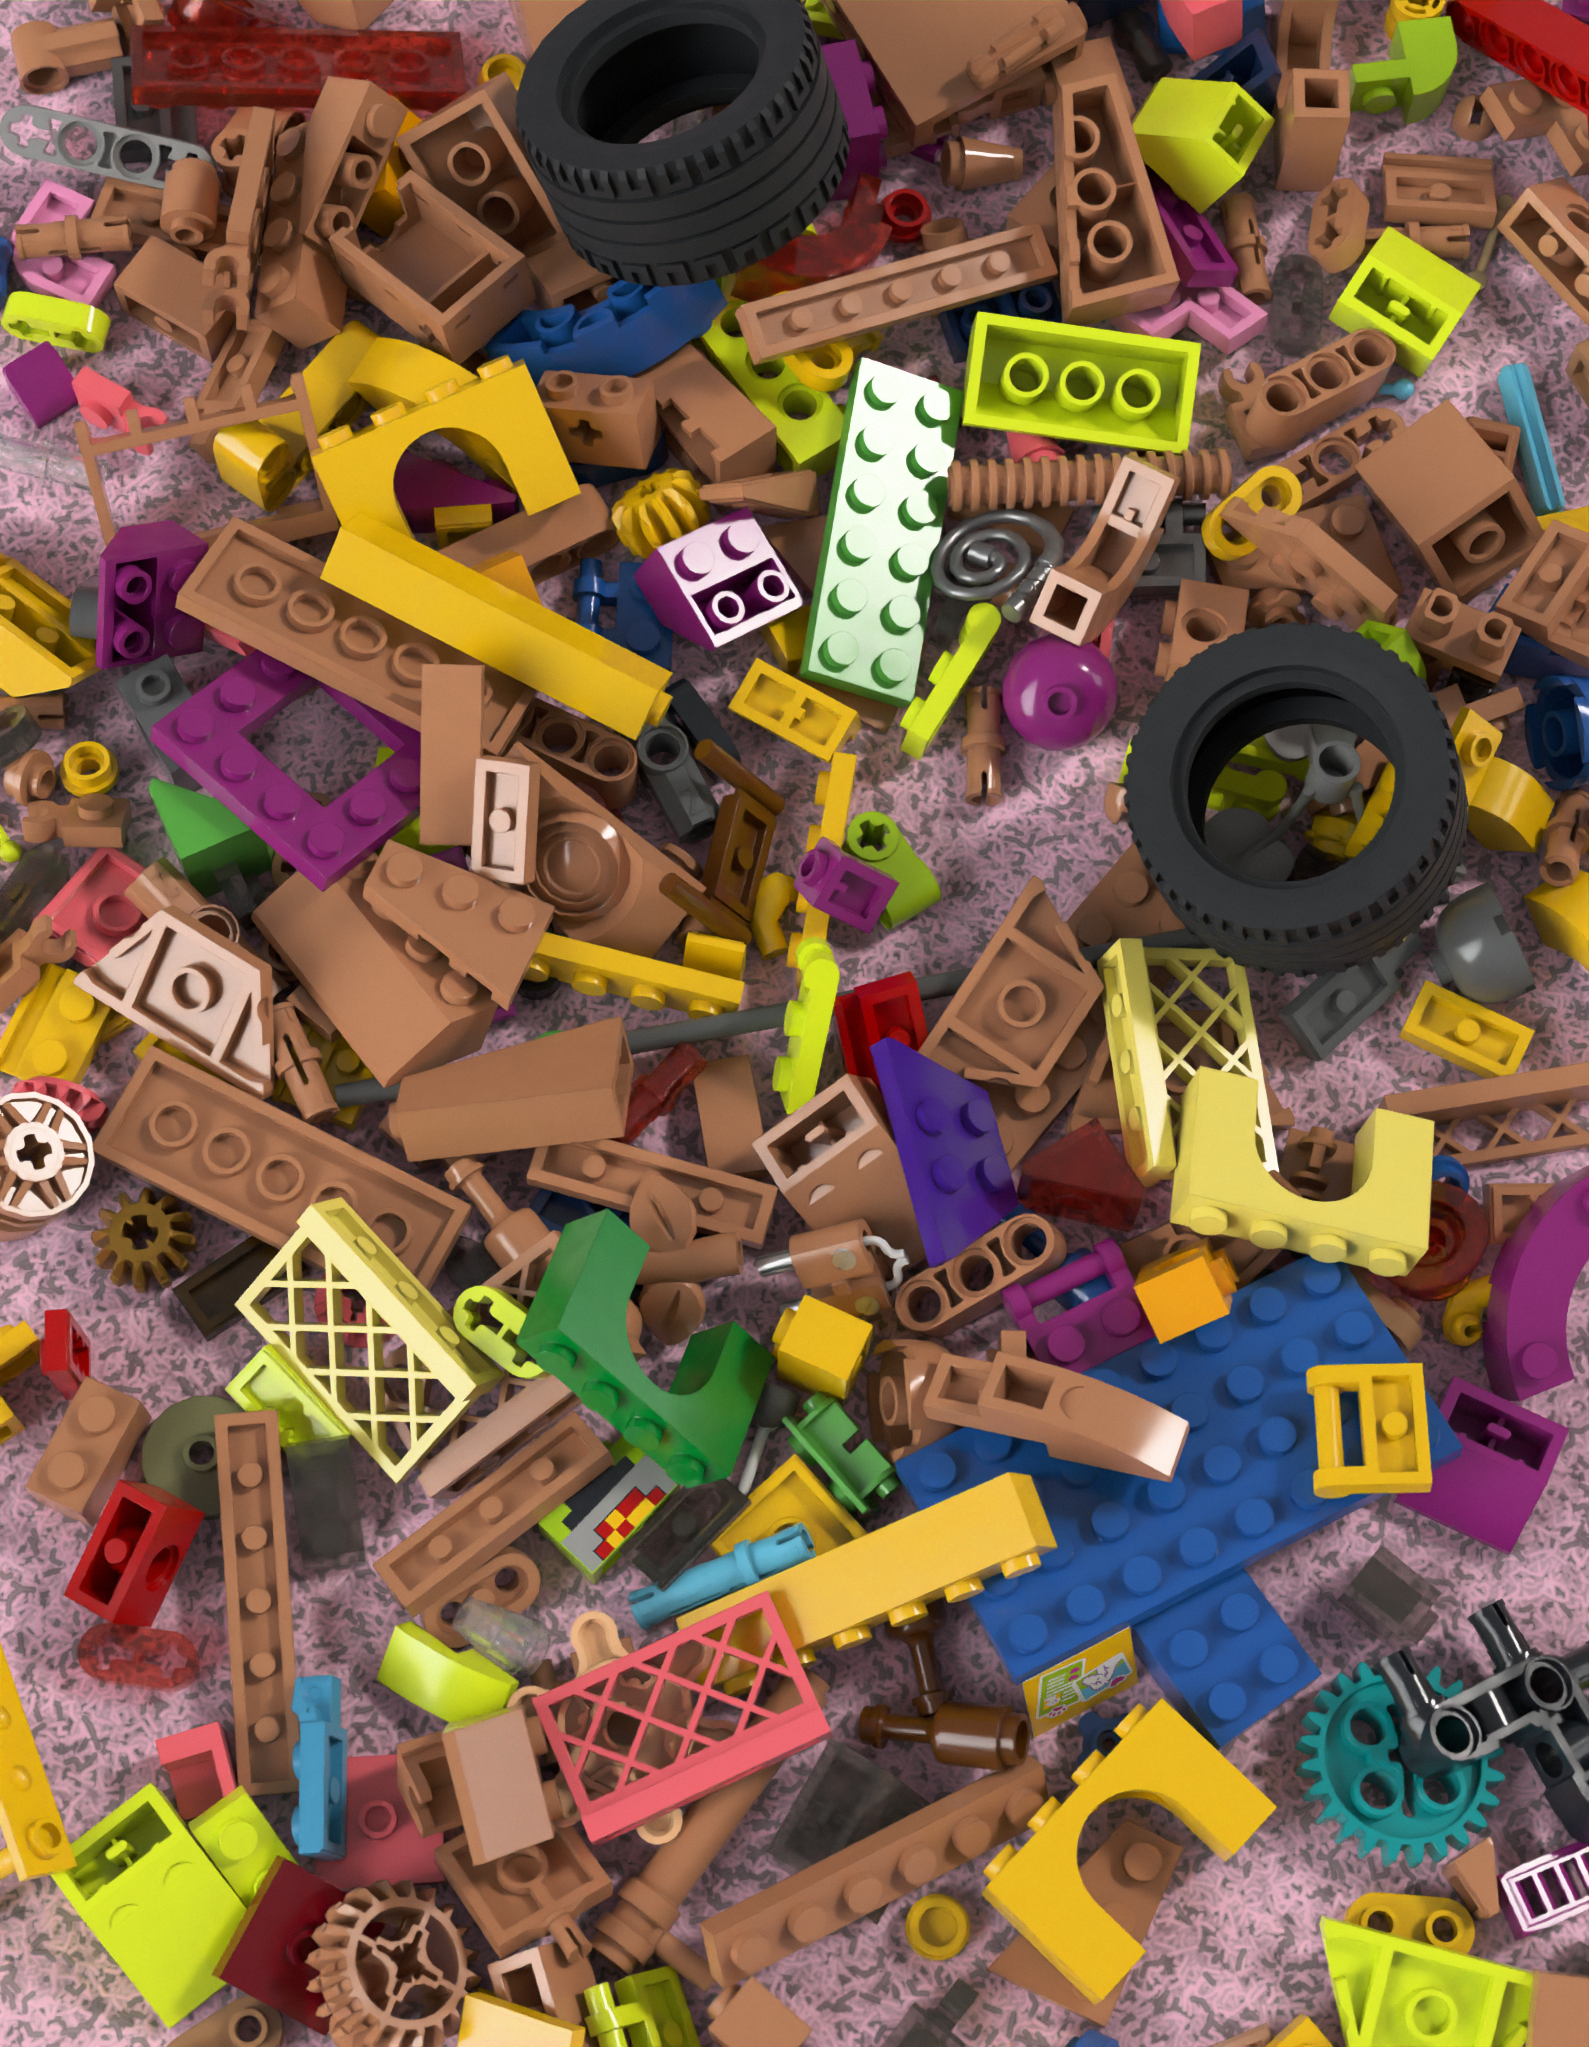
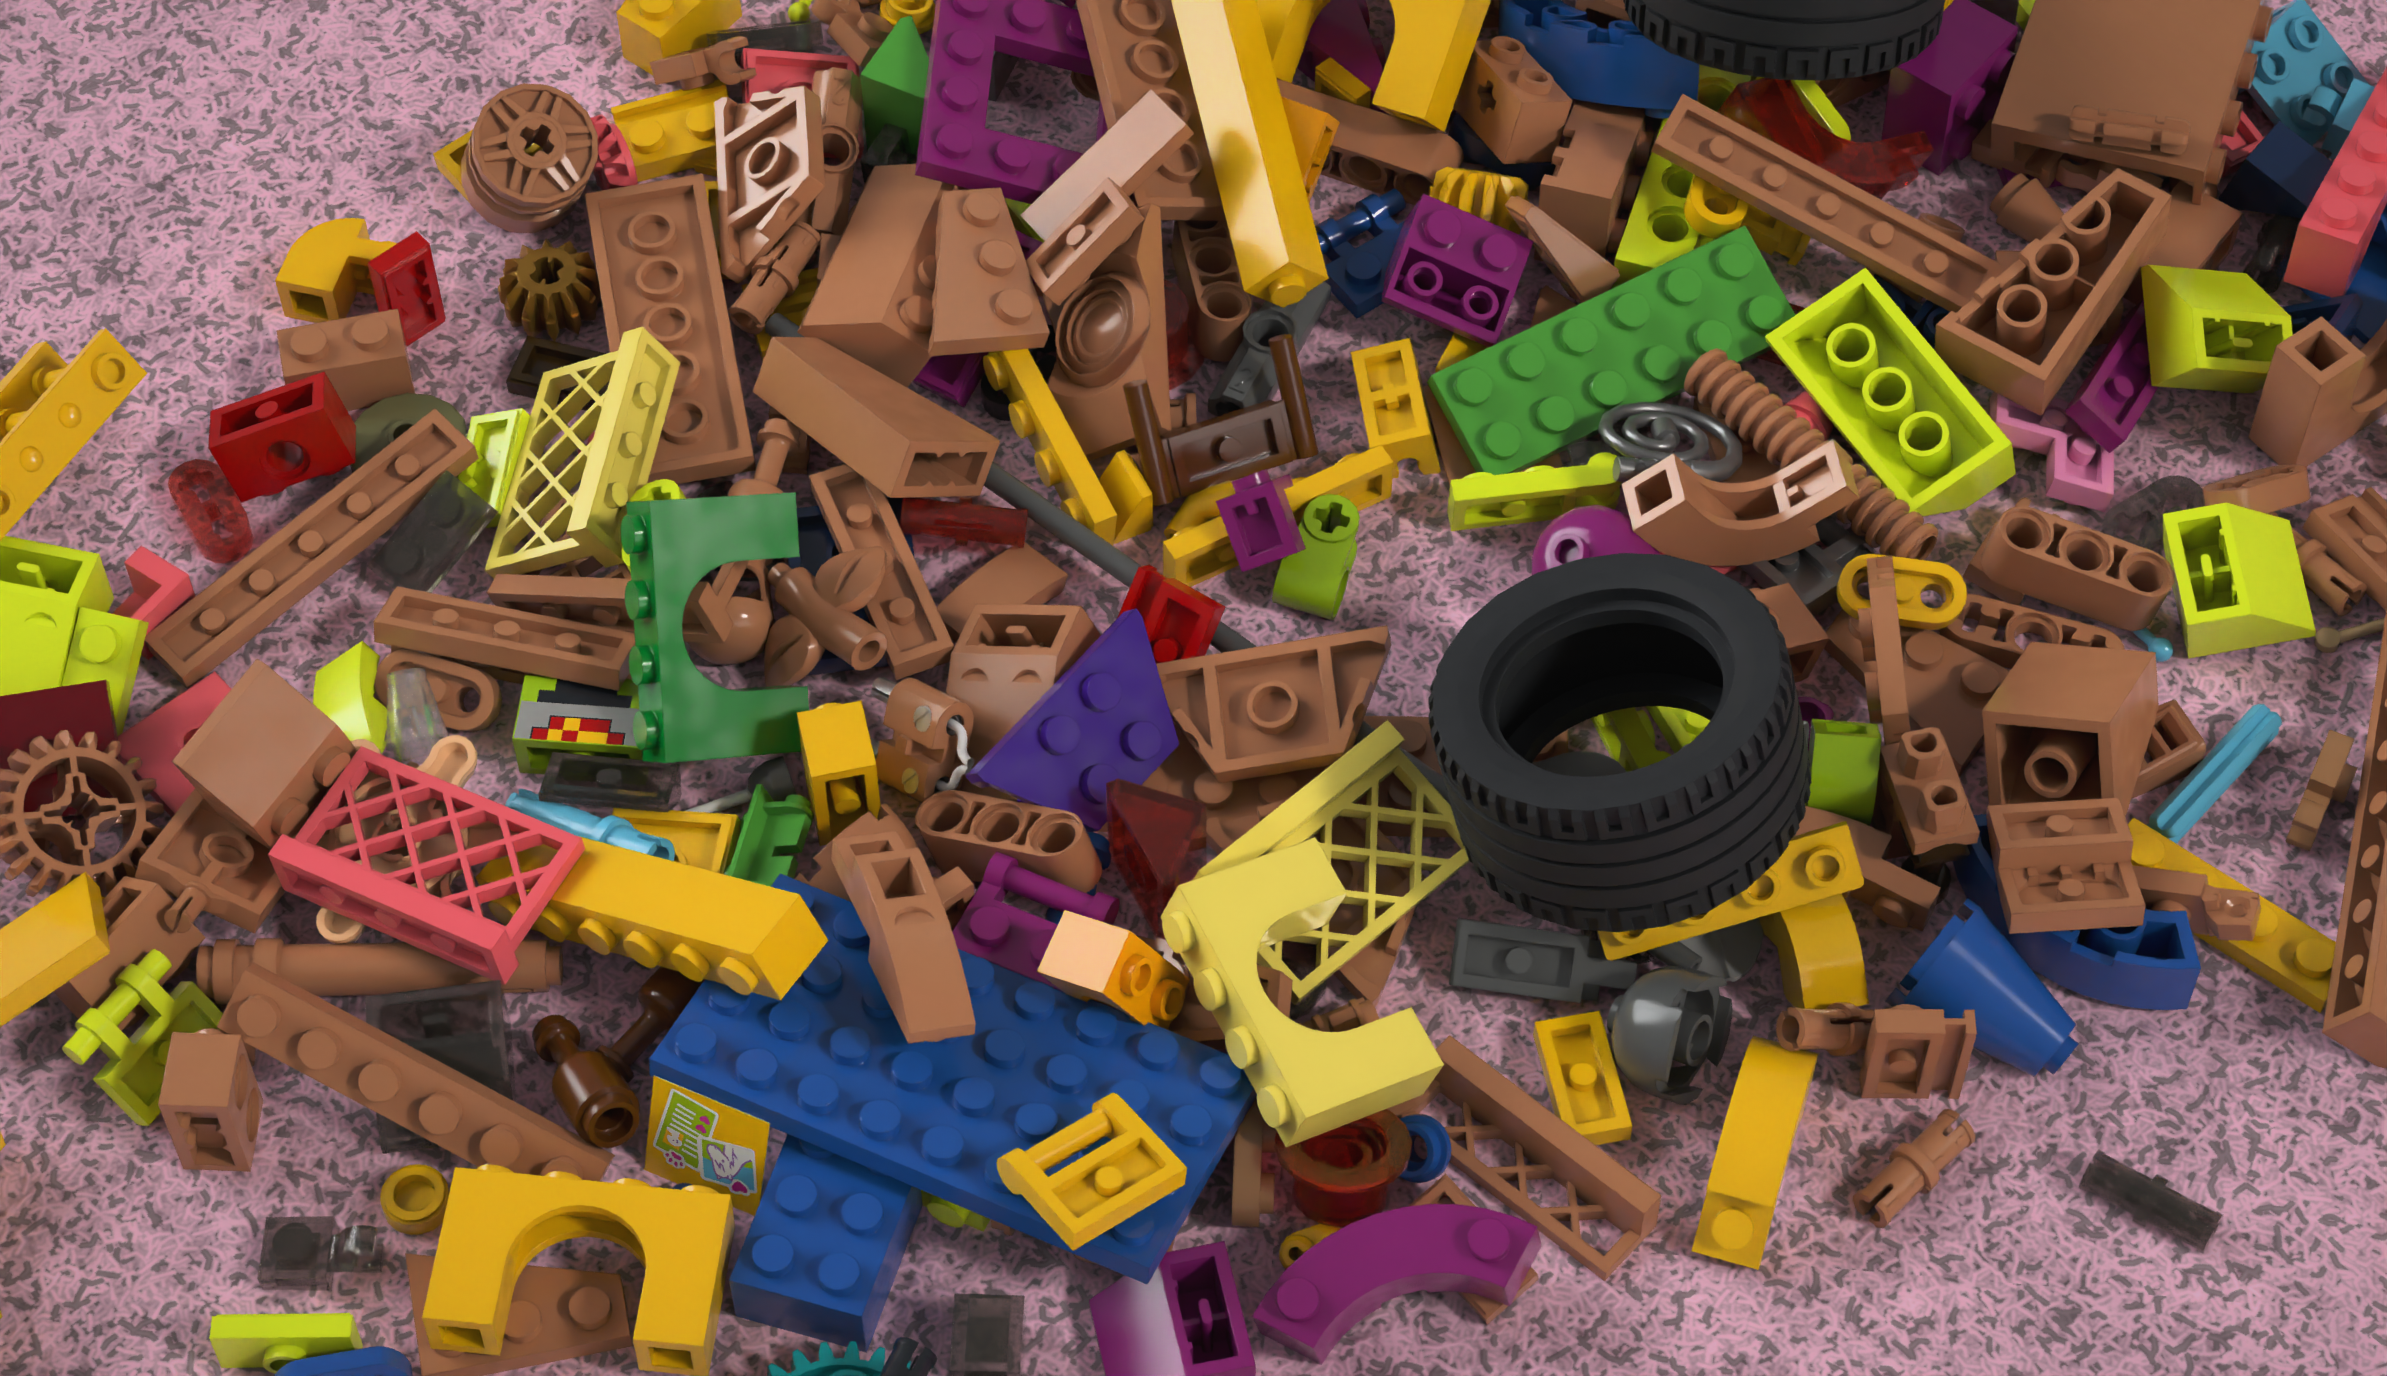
camera: 55 degrees right, 15 degrees down
(321, 1768) = (199, 670): dark azure hinge -> none
(697, 720) = (1323, 353): black beam -> none
(807, 1024) = (1149, 540): neon yellow plate -> none
(907, 203) = (1934, 187): red plate -> none
(983, 746) = (1498, 562): nougat pin -> none
(1246, 247) = (2181, 432): nougat pin -> none
(1274, 606) = (1845, 675): nougat plate -> none

